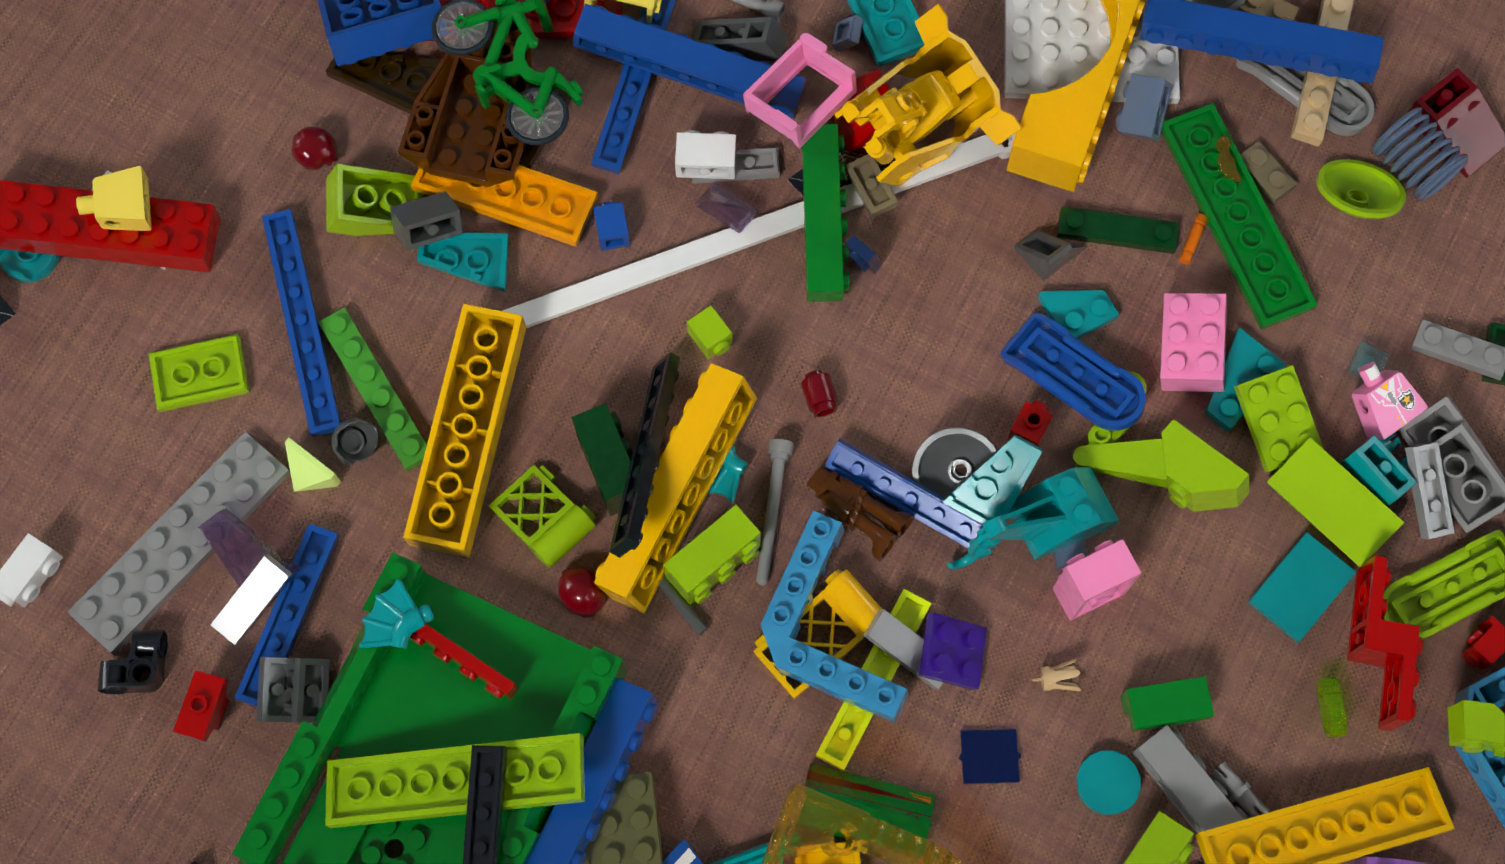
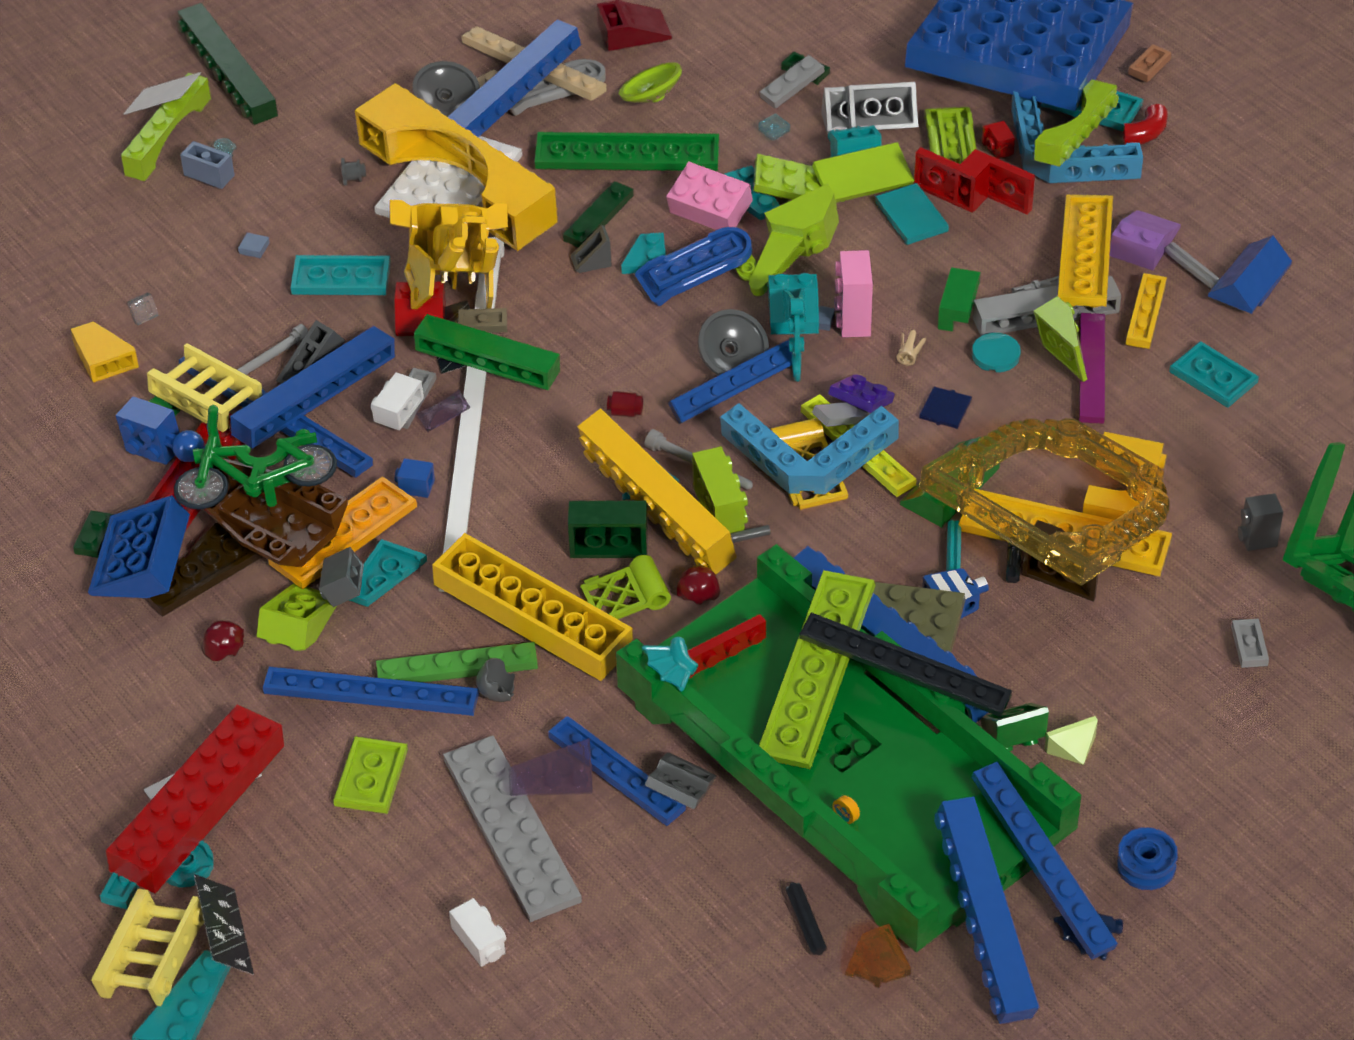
camera: 65 degrees left, 25 degrees down
(119, 200) = (203, 747): light yellow torso -> none
(146, 652) = (597, 871): black piece -> none
(202, 706) = (662, 838): red brick -> none
(251, 599) = (593, 779): tile -> none
(307, 471) = (499, 721): yellowish green slope -> none
(644, 458) = (624, 486): black plate -> none
(710, 333) = (539, 448): lime brick -> none
(804, 52) = (368, 303): bright pink piece -> none
(847, 33) = (349, 298): sand blue tile -> none
(848, 499) = (709, 419): reddish brown piece -> none
(862, 255) = (537, 334): dark blue plate -> none
(996, 482) = (756, 318): wing -> none
(1033, 433) = (717, 298): red brick -> none
(1144, 107) = (524, 155): sand blue brick -> none
(1193, 239) = (630, 180): orange wheel -> none
(1225, 161) = (587, 138): clear orange piece -> none
(1267, 173) = (607, 125): dark tan plate -> none
(1331, 707) = (1002, 225): clear neon green beam -> none
(1385, 401) = (808, 124): bright pink torso -> none
(1429, 186) = (649, 37): sand blue piece -> none
(1430, 490) = (888, 128): light grey plate -> none

